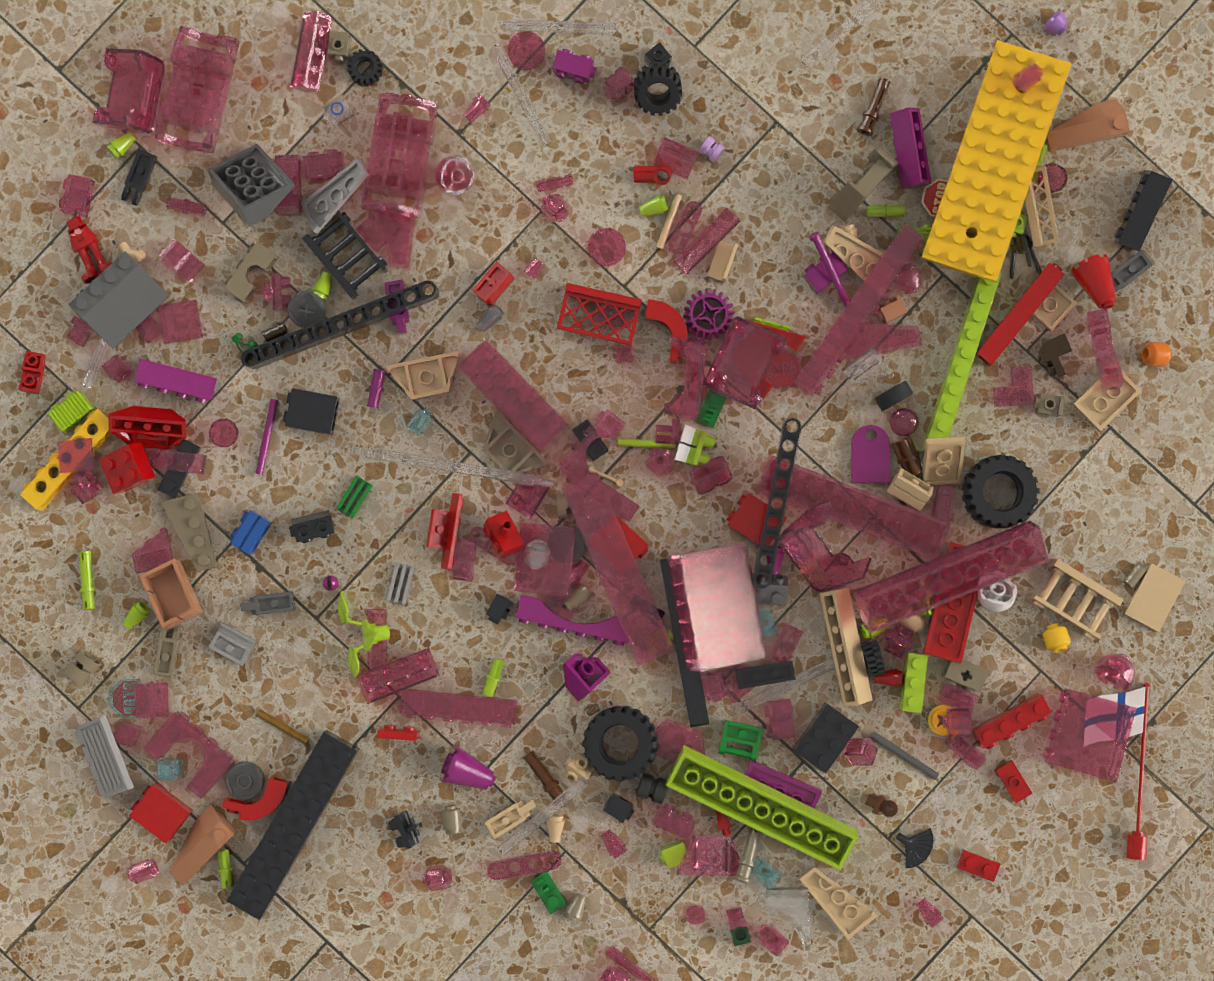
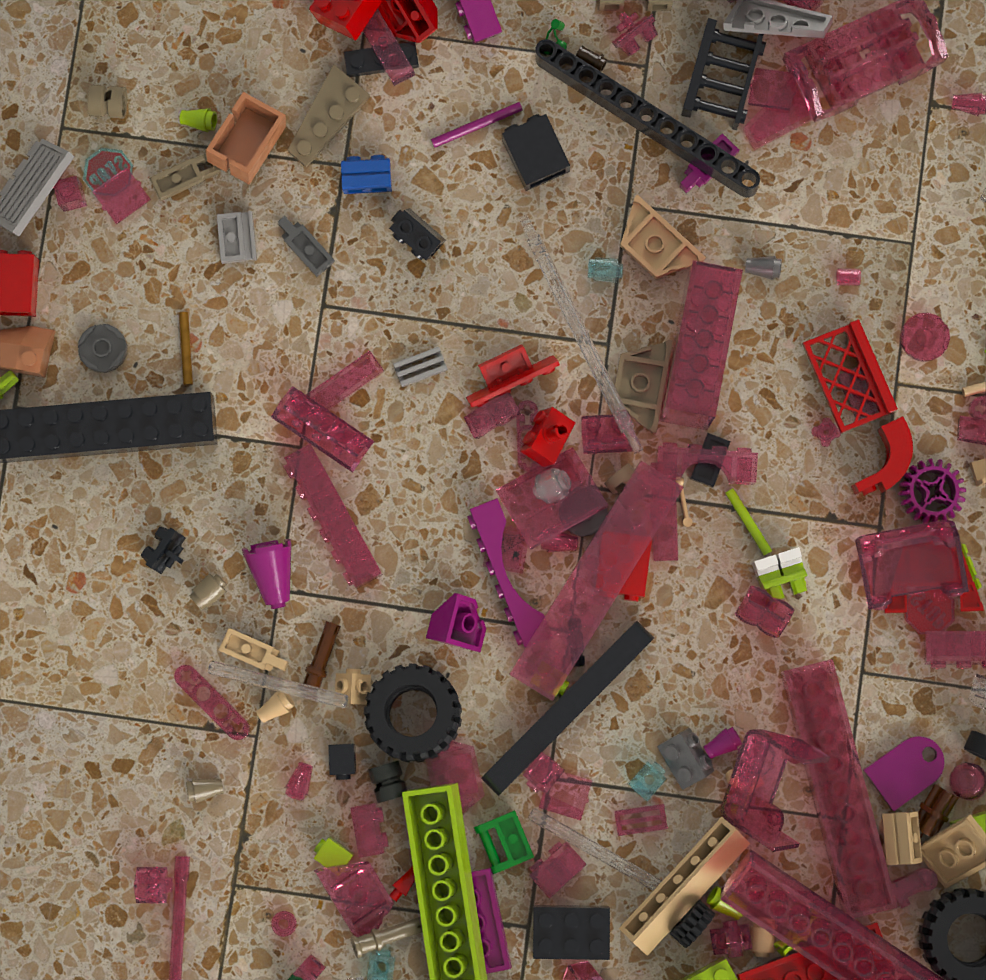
camera: 55 degrees right, 5 degrees down
(86, 580) = (205, 41): lime pin -> none
(153, 553) = (276, 91): clear pink wing -> none
(169, 769) = (62, 262): clear light blue brick -> none
(215, 759) = (102, 304): clear pink arch -> none
(223, 432) = (450, 77): clear pink hair -> none
(273, 797) = (97, 388): red arch -> none
(306, 308) = (638, 72): dark grey tile -> none
(323, 285) = (670, 74): lime cone -> none
(334, 583) = (372, 298): magenta hinge -> none
(346, 510) = (477, 247): green tile -> none
(370, 632) = (346, 367): lime plant -> none
(376, 388) = (606, 201): magenta pin -> none
(406, 733) = (257, 463): red plate -> none
(437, 877) = (136, 618): clear pink head -> none
(454, 175) = (885, 127): clear pink cylinder -> none
(493, 284) = (801, 246): red hinge -> none
(493, 677) = (389, 531): lime axle -> none
(499, 609) = (465, 486): black brick -> none
(548, 892) = (200, 748): green plate -> none
(553, 183) = (951, 236): clear pink axle -> none
(555, 207) = (927, 254): clear pink head -> none
(578, 597) = (536, 561): dark tan cone -> none
(654, 457) = (738, 540): clear pink brick -> none
(668, 434) = (775, 537): clear pink panel -> none
(689, 404) = (828, 538): clear pink windscreen -> none
(711, 409) = (835, 564): green plate -> none
(716, 607) = (630, 714): clear pink brick -> none
(749, 519) = (750, 694): red brick -> none
(765, 674) = (593, 819): black plate -> none
(776, 512) = (796, 691): black beam -> none
(890, 678) = (683, 958): red cone -> none

